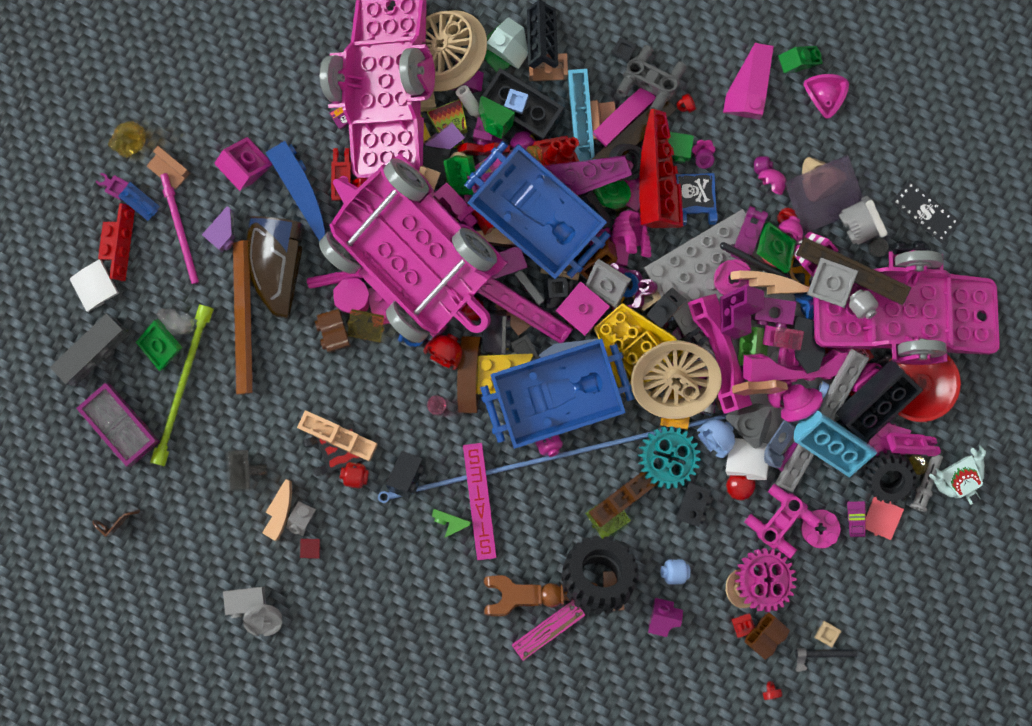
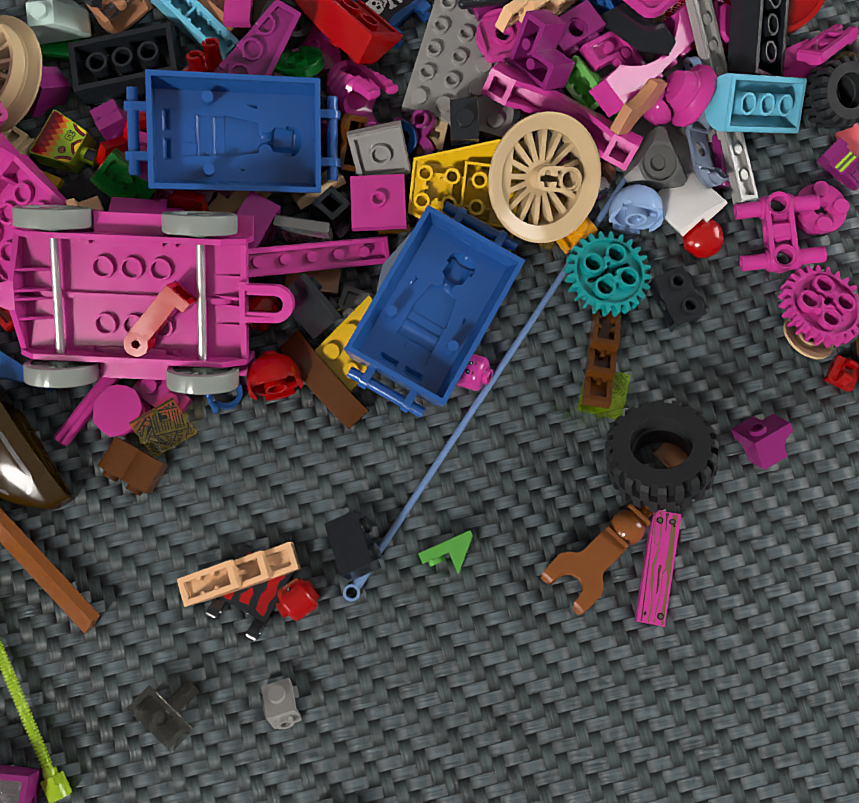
camera: 50 degrees left, 5 degrees down
(279, 510) = (249, 718): light nougat slope -> none
(310, 548) = (322, 726): dark red tile -> none
(427, 272) = (144, 332): none -> leg
(436, 405) = (323, 443): clear pink wheel -> none
(446, 138) = (74, 159): medium lavender slope -> none
(468, 100) = (64, 104): white cylinder -> none
(479, 501) = (458, 500): dark pink tile -> none
(495, 117) = (104, 90): green slope -> none
(516, 101) = (113, 57): light blue tile -> none
(675, 571) = (727, 382): light blue head -> none
(788, 338) = (616, 36): clear pink panel -> none

